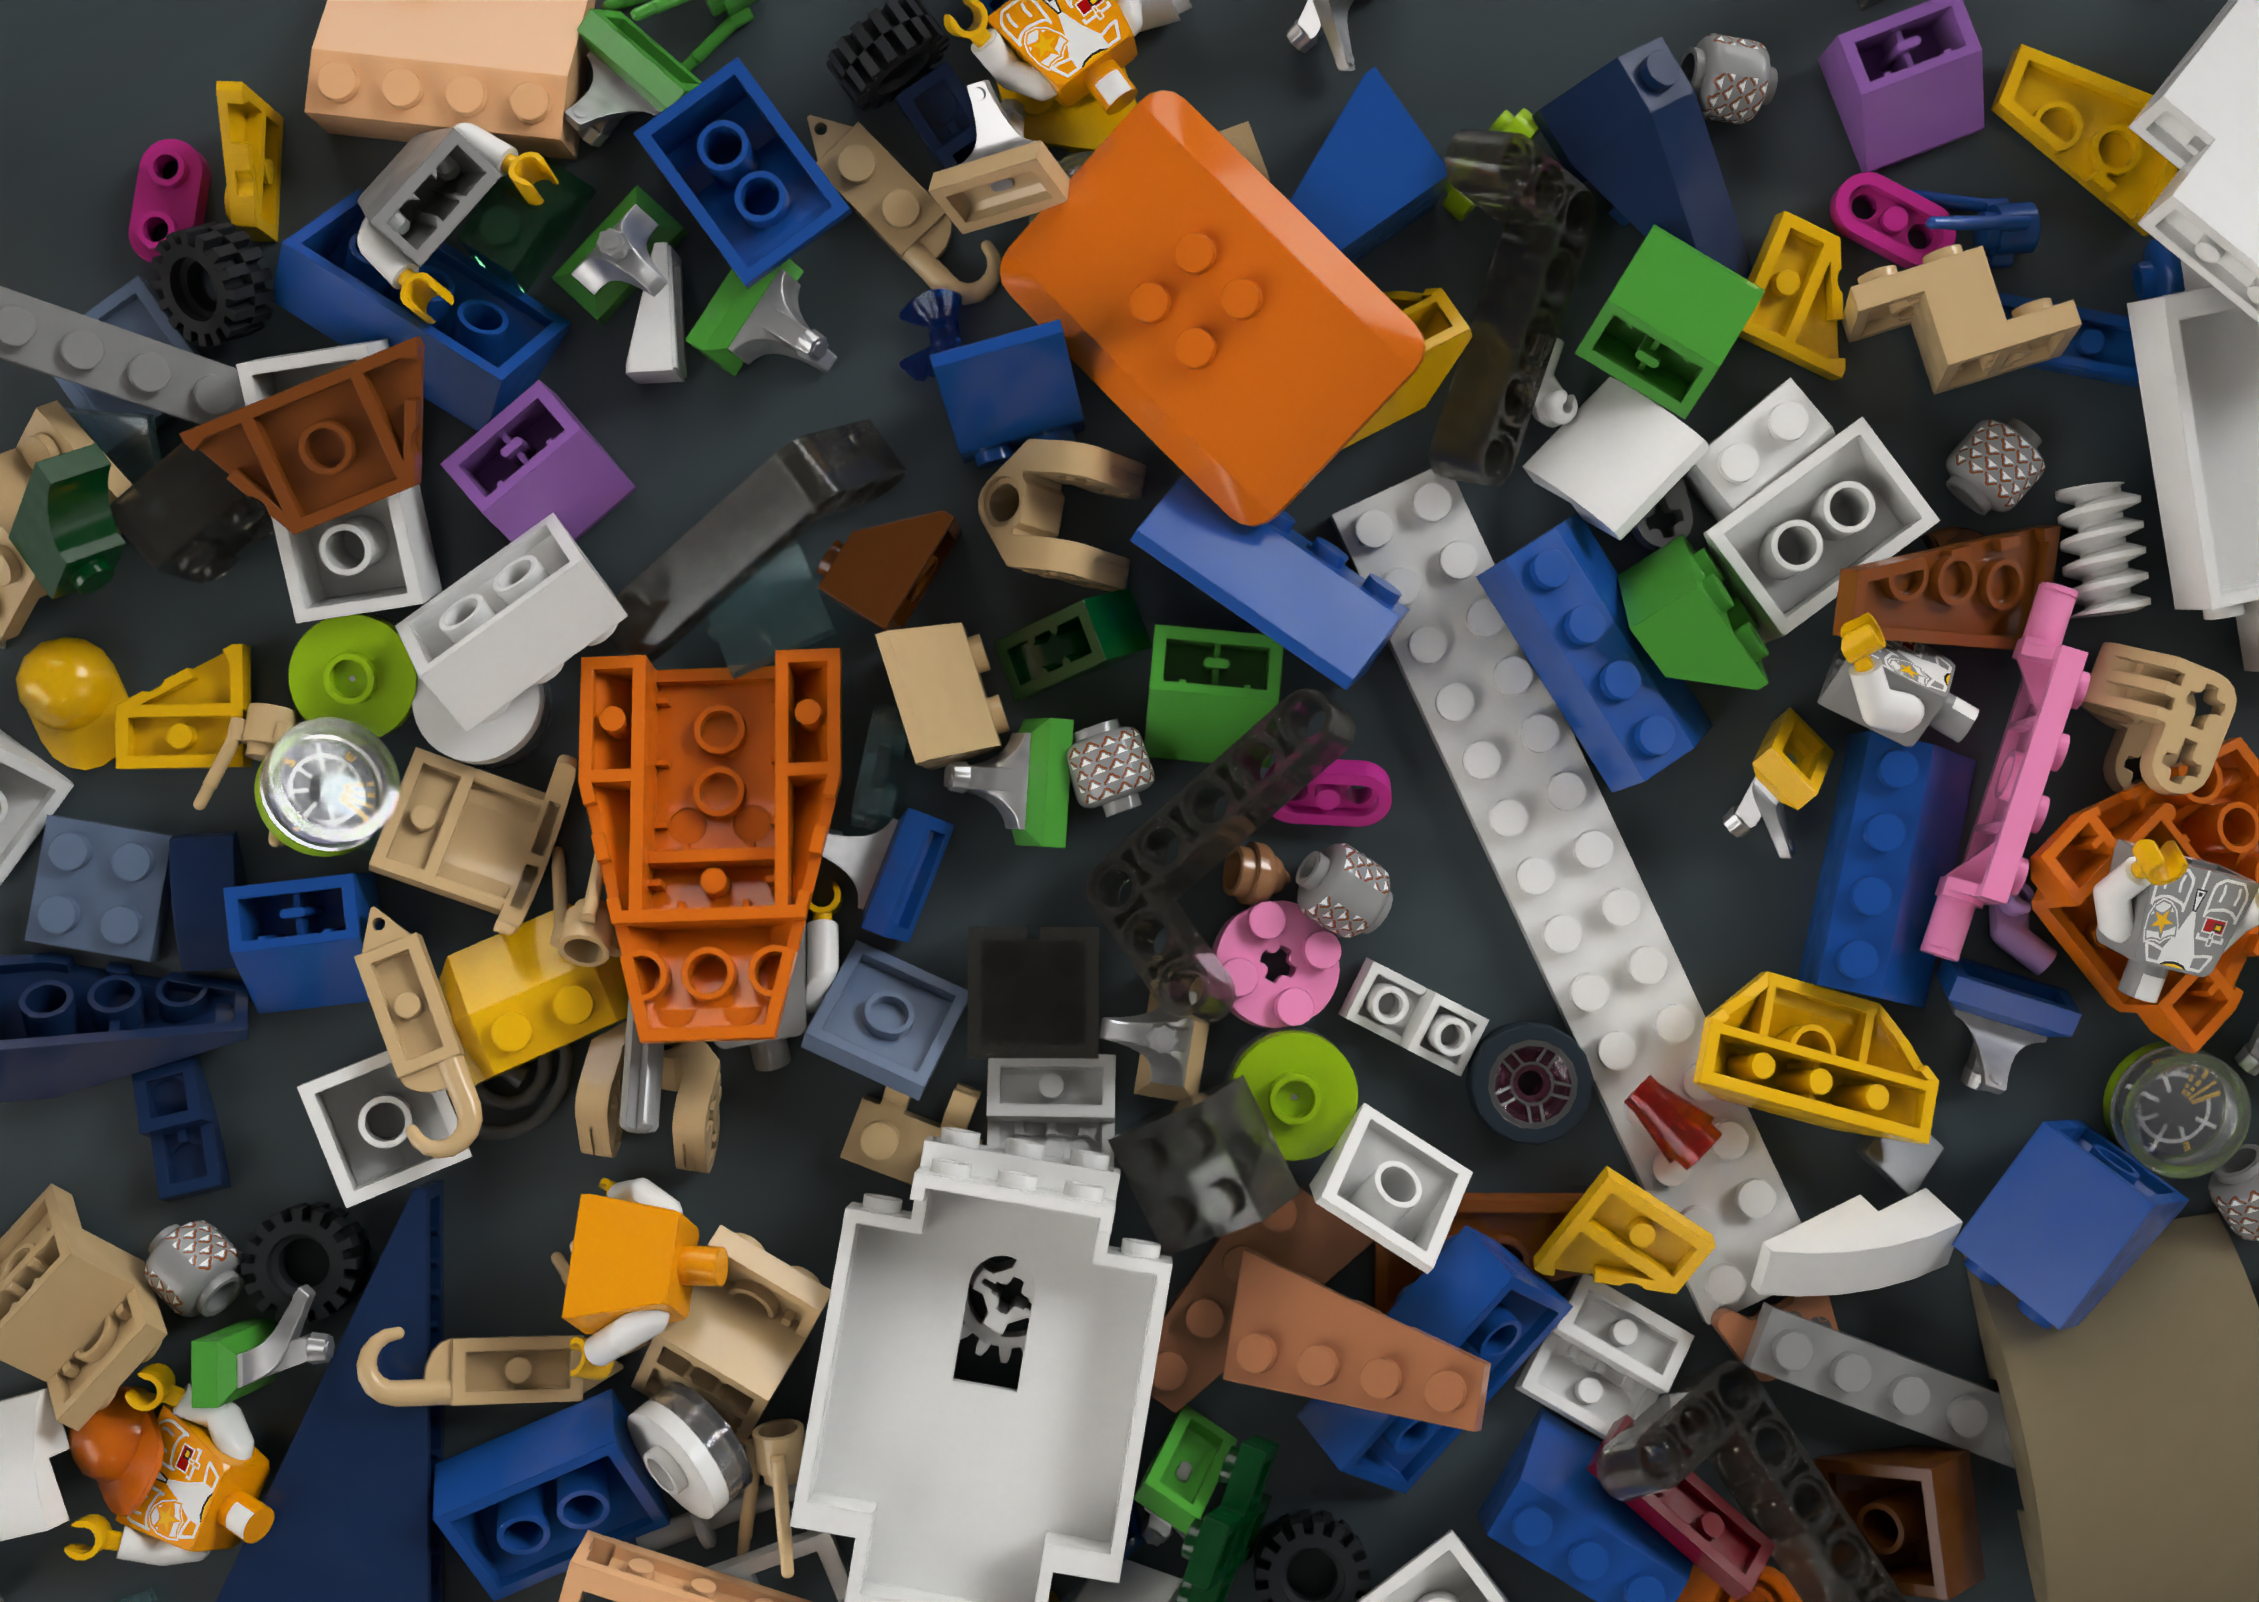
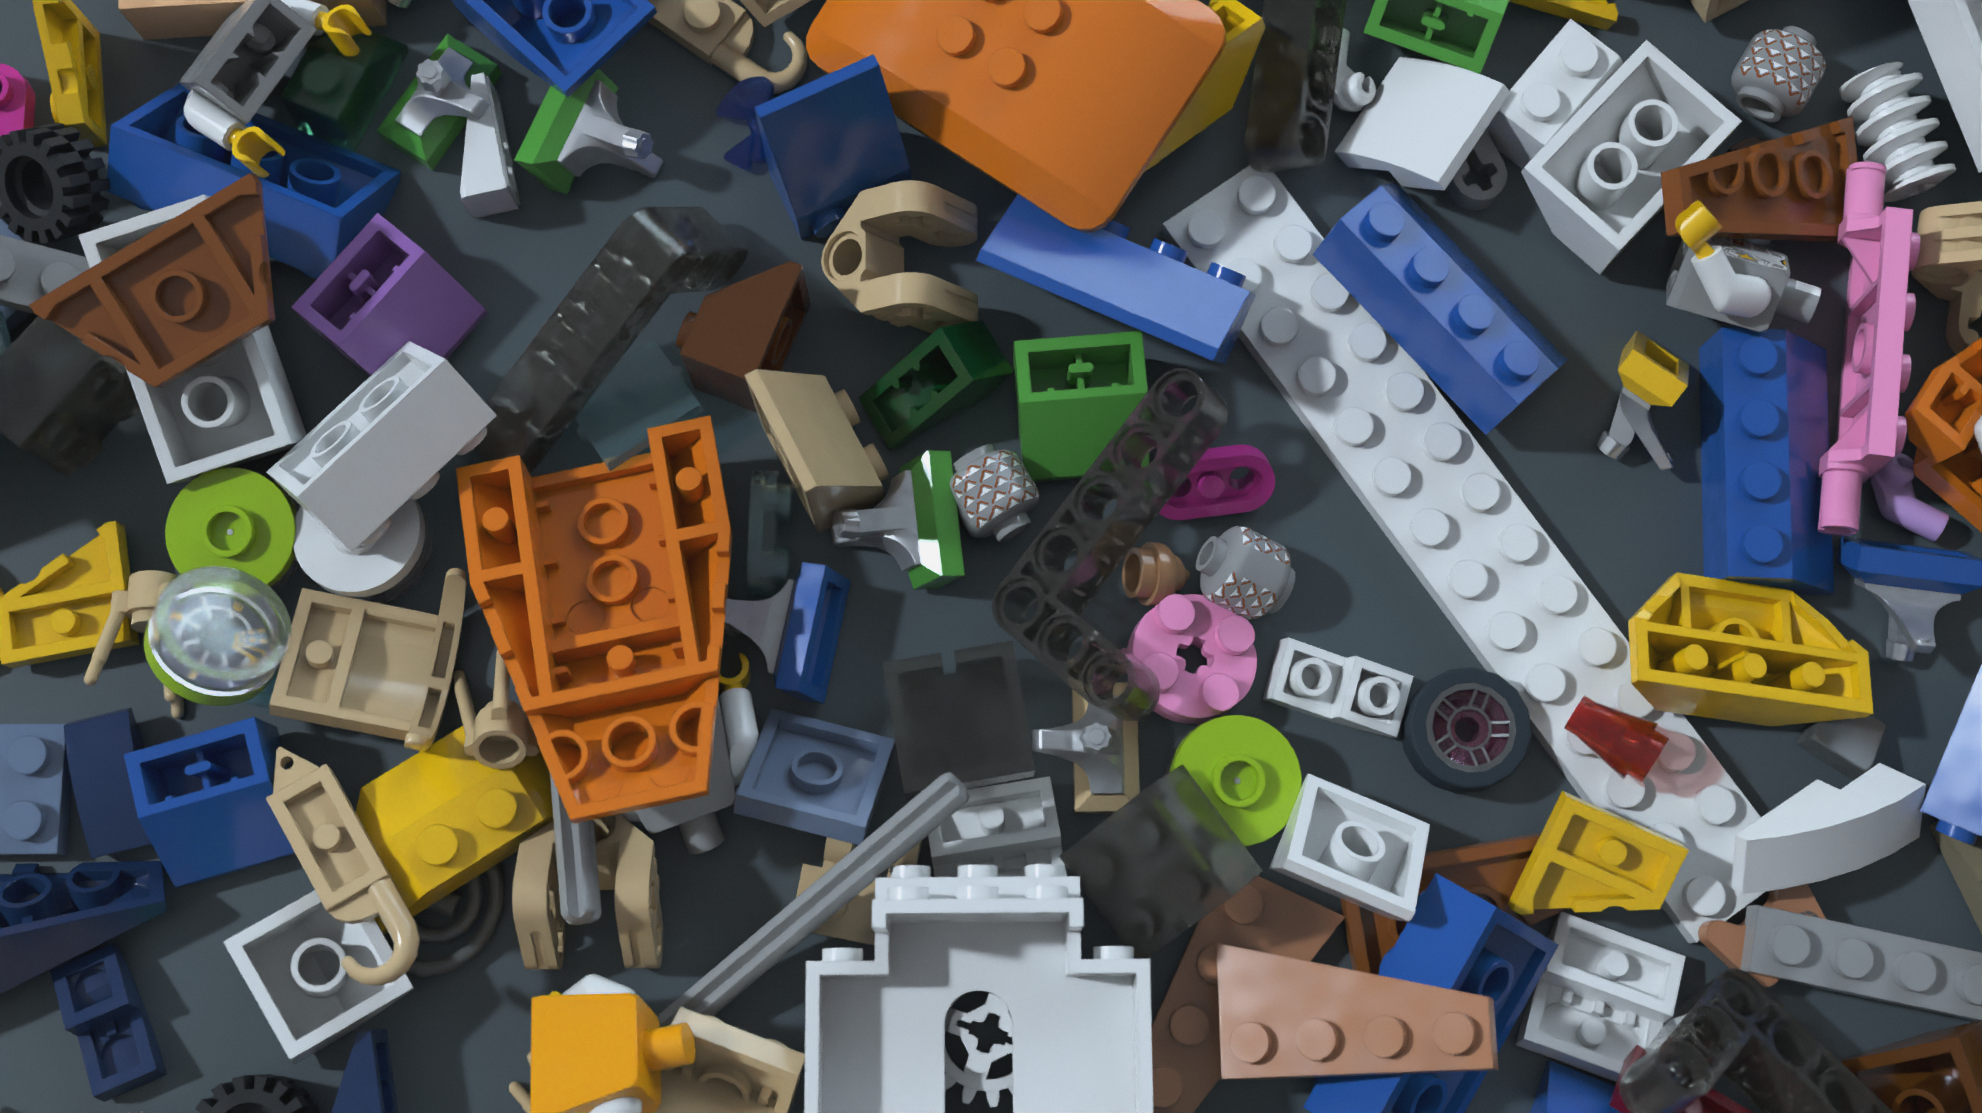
camera: 15 degrees left, 10 degrees down
(869, 1146) = (823, 898): none -> light grey axle
(1690, 620) = (1524, 254): bright green slope -> none

